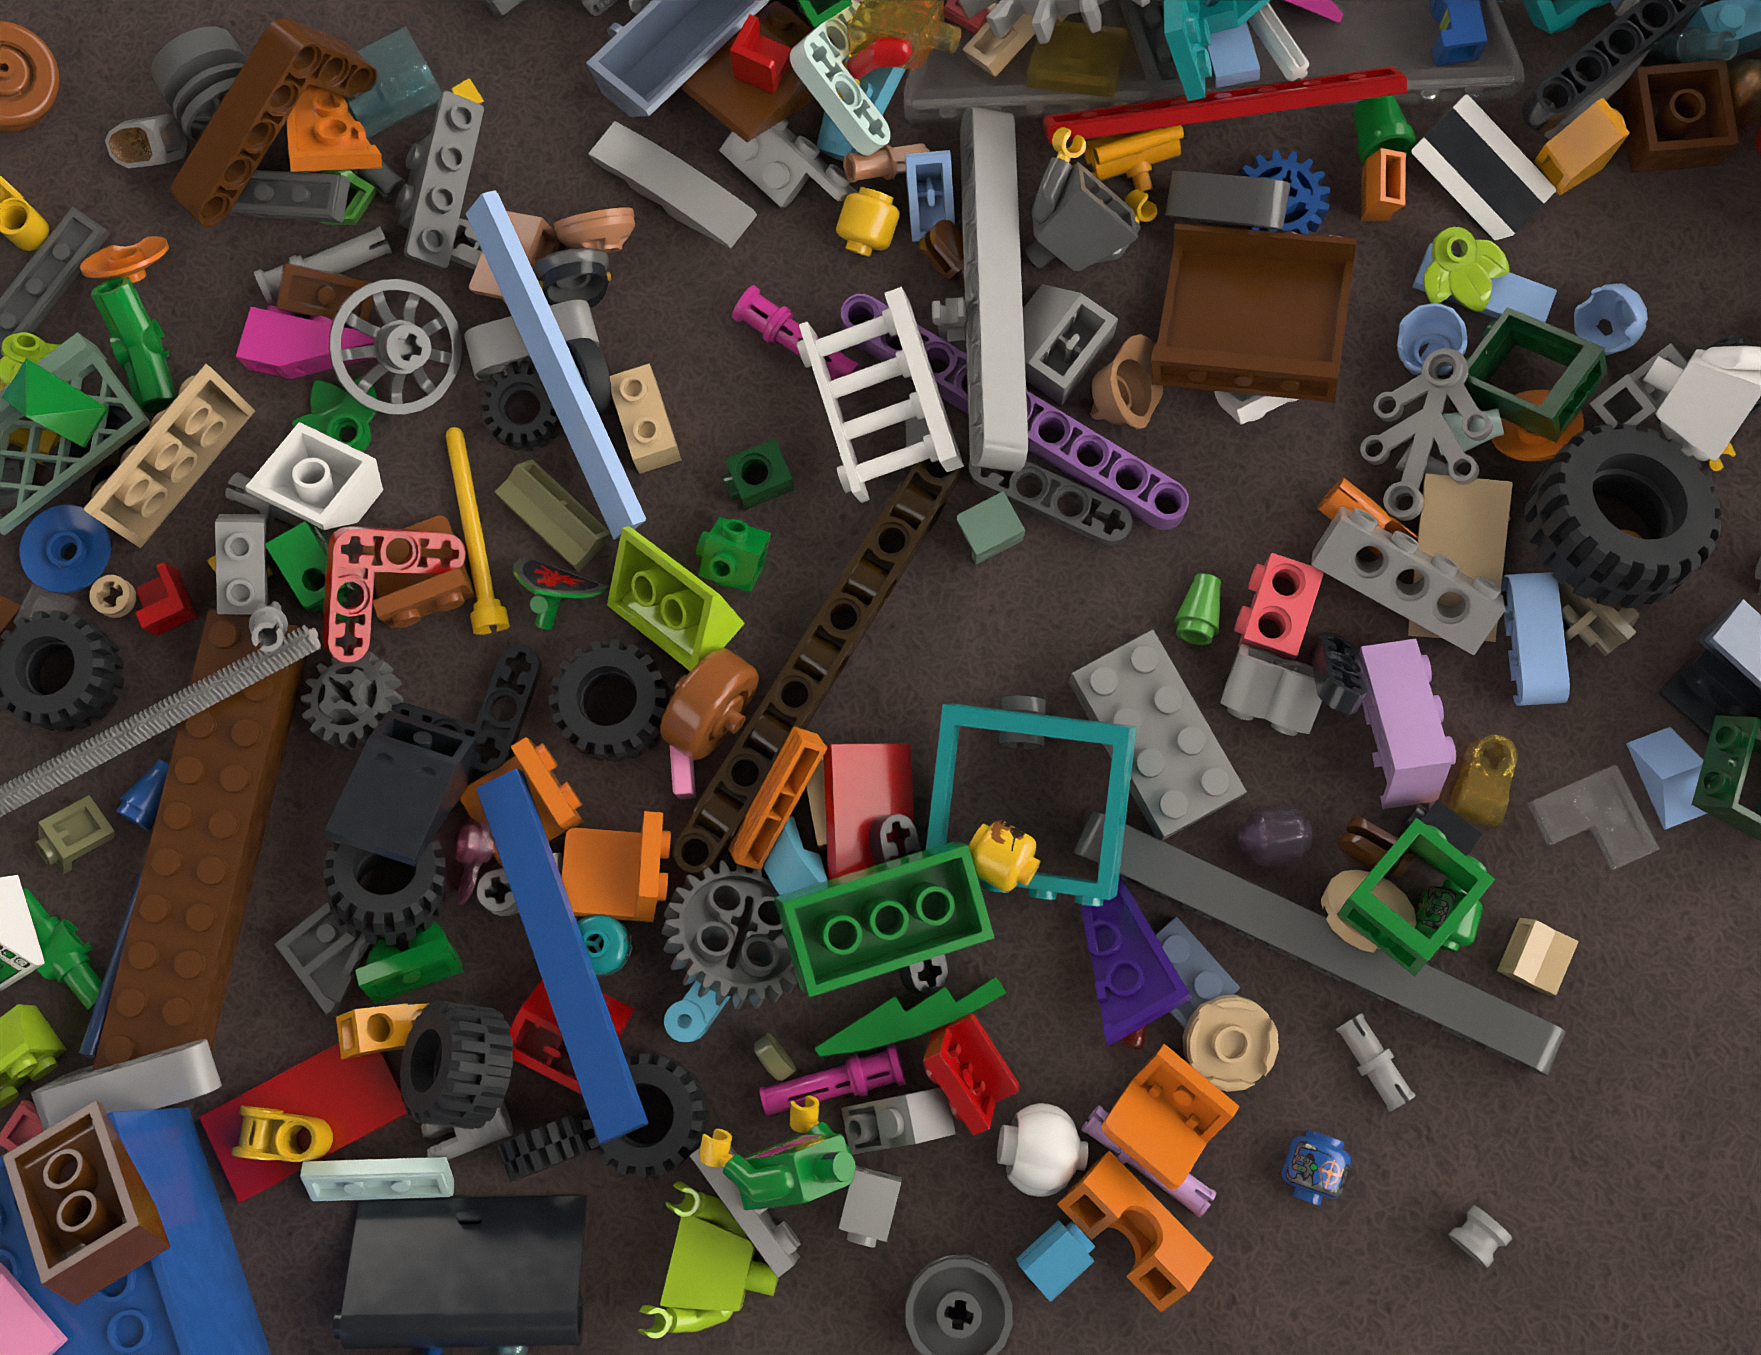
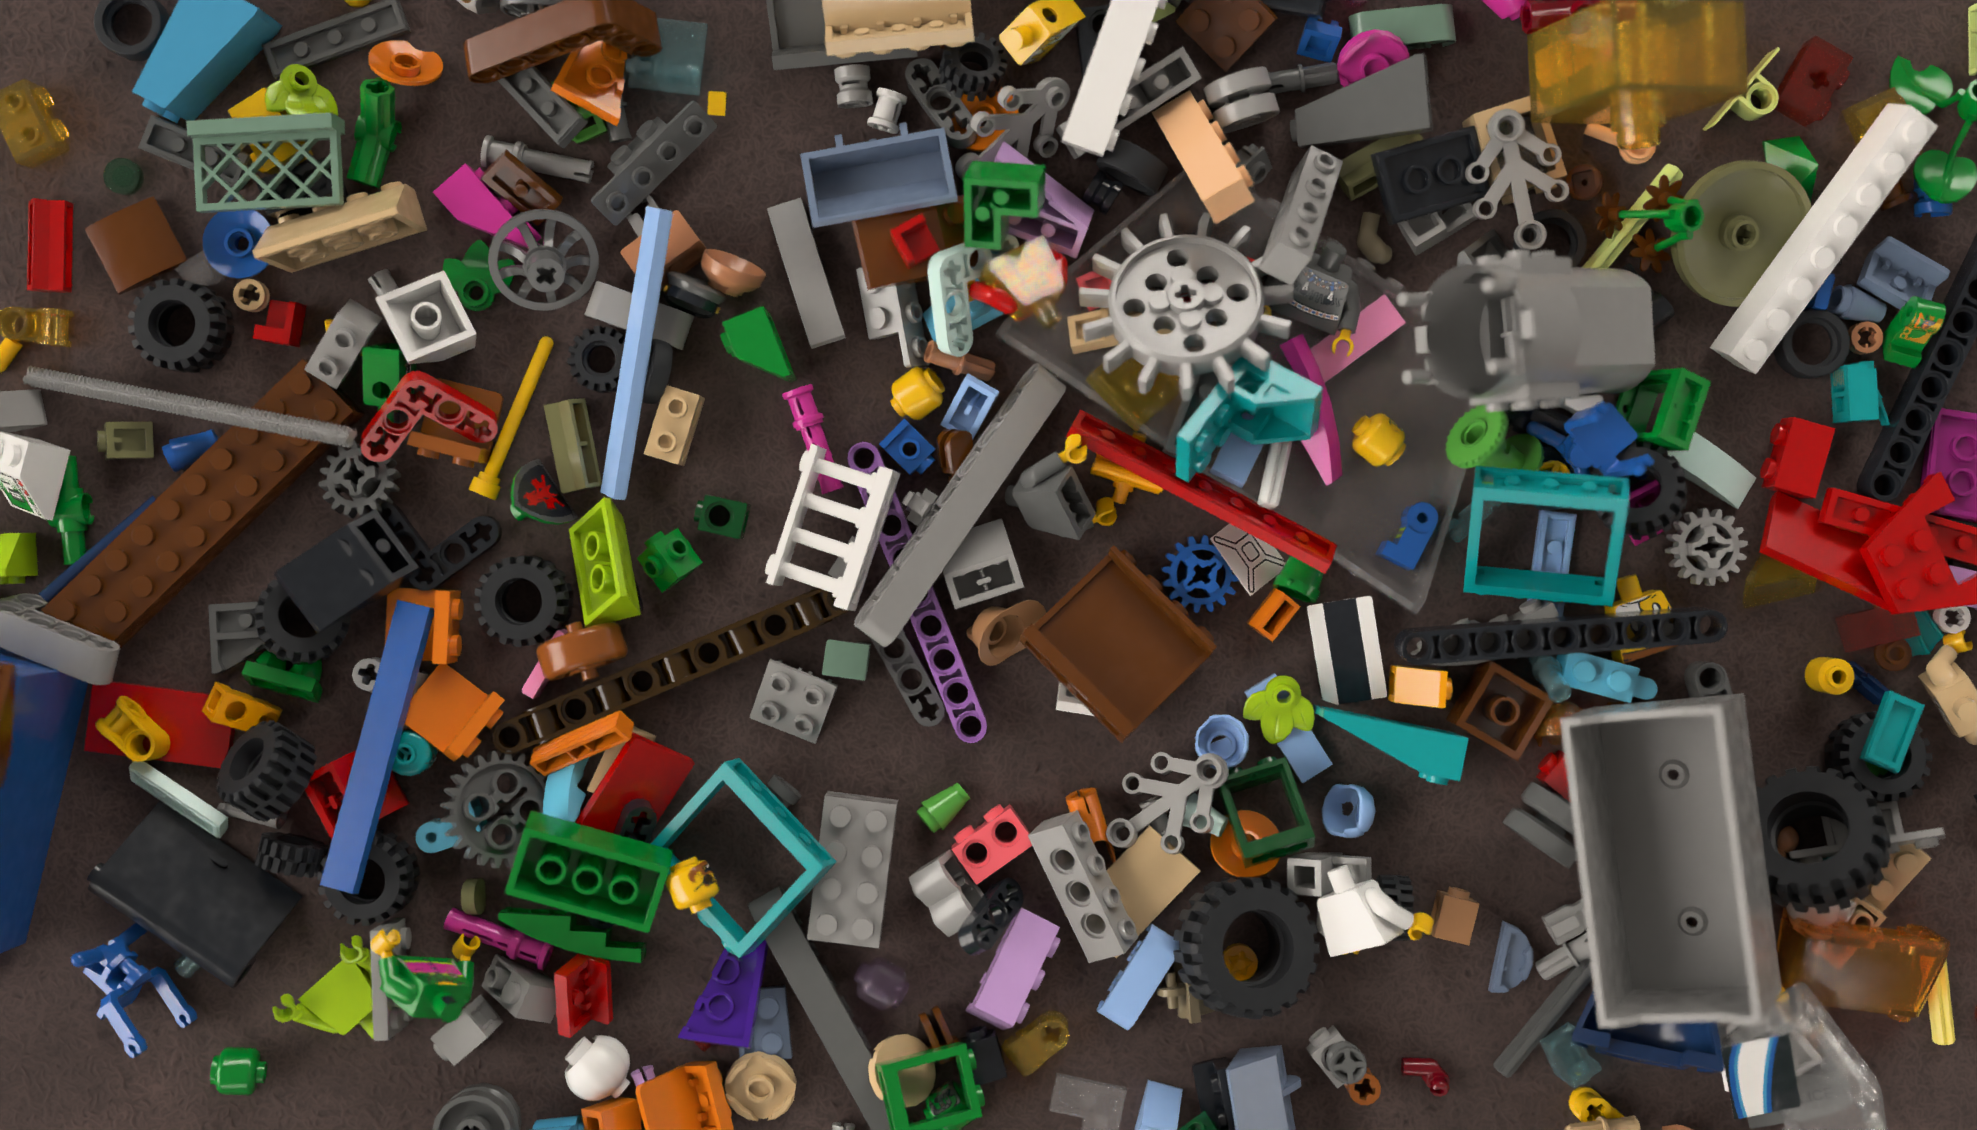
camera: 25 degrees right, 10 degrees up
(54, 403) = (282, 153): green slope -> none
(268, 626) = (326, 409): light grey axle -> none
(473, 848) = (369, 638): clear pink plate -> none
(676, 276) = (757, 343): none -> green slope
(881, 277) = (903, 434): none -> blue brick
(965, 610) = (793, 700): none -> light grey hinge
(1228, 199) = (1158, 555): dark grey beam -> none
(1312, 145) = (1248, 557): none -> white sticker
(1609, 212) = (1429, 750): none -> teal slope

